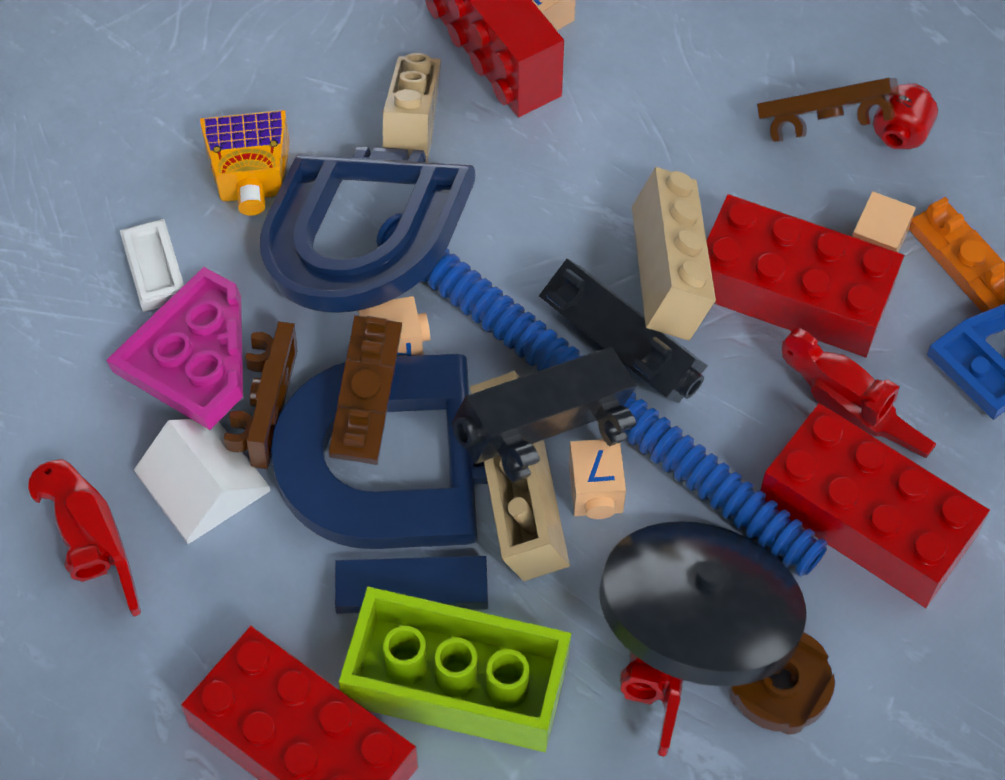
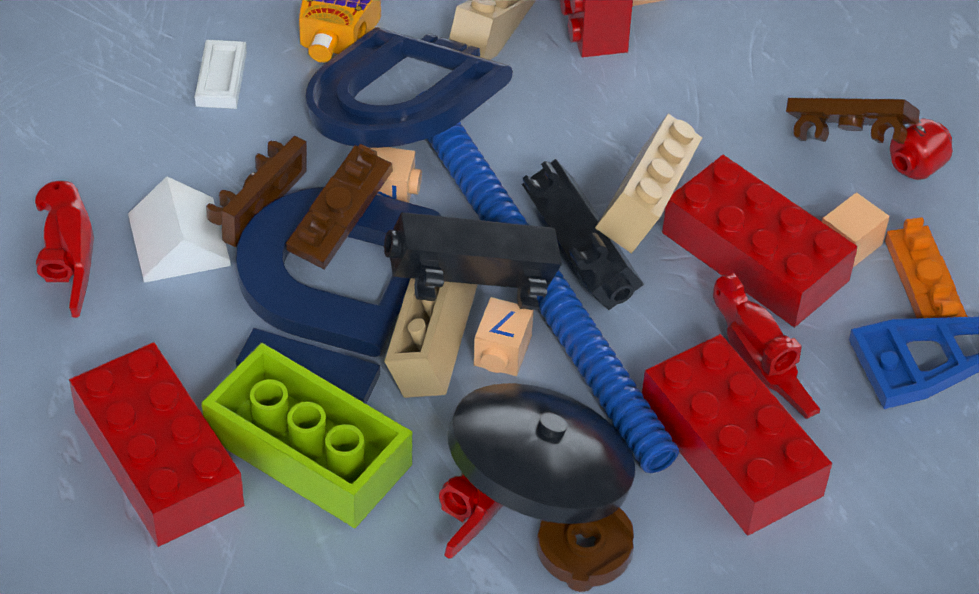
camera: 20 degrees right, 10 degrees down
(190, 350) = (215, 140): dark pink plate -> none

